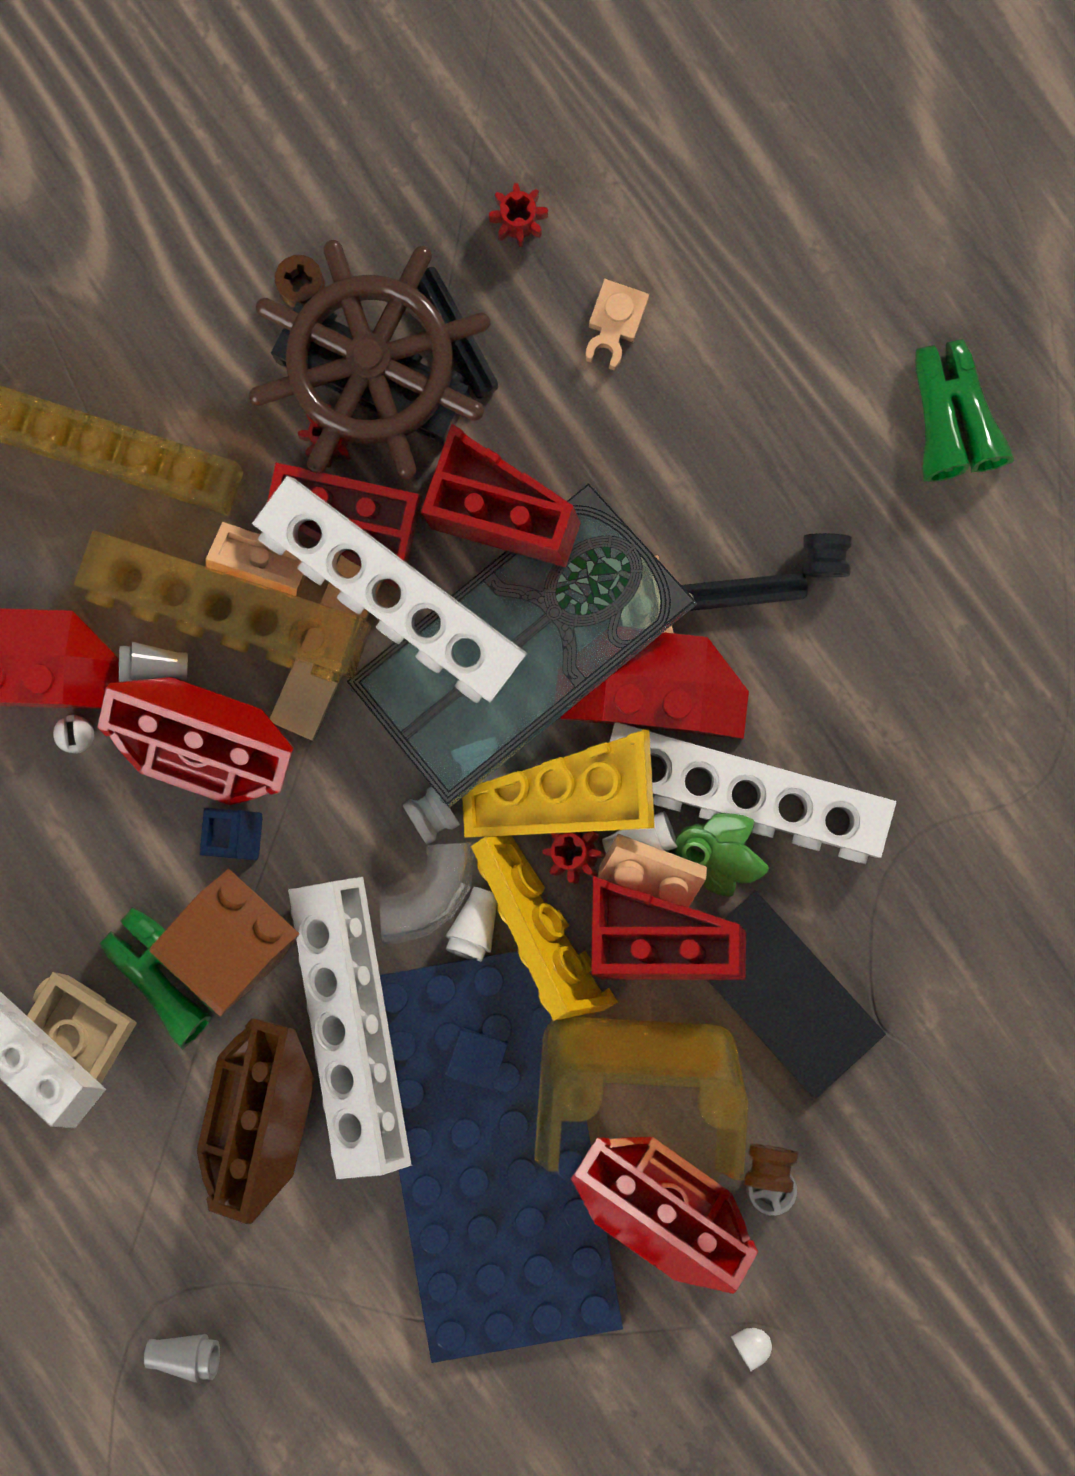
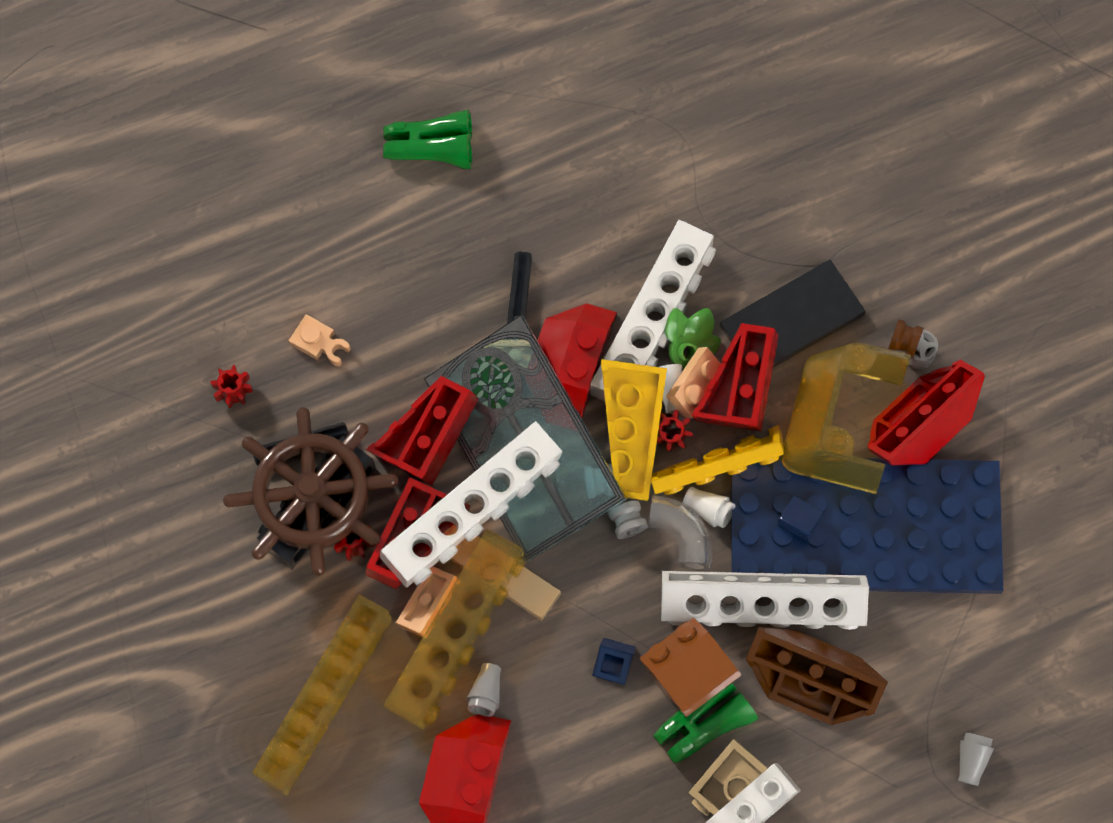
camera: 80 degrees left, 15 degrees down
(82, 733) = (521, 763): white hinge -> none
(196, 739) = (546, 663): red wedge -> none
(300, 289) = (240, 546): reddish brown wheel -> none
(753, 1346) = (1024, 381): white hinge -> none
(826, 555) = (506, 235): black wheel -> none

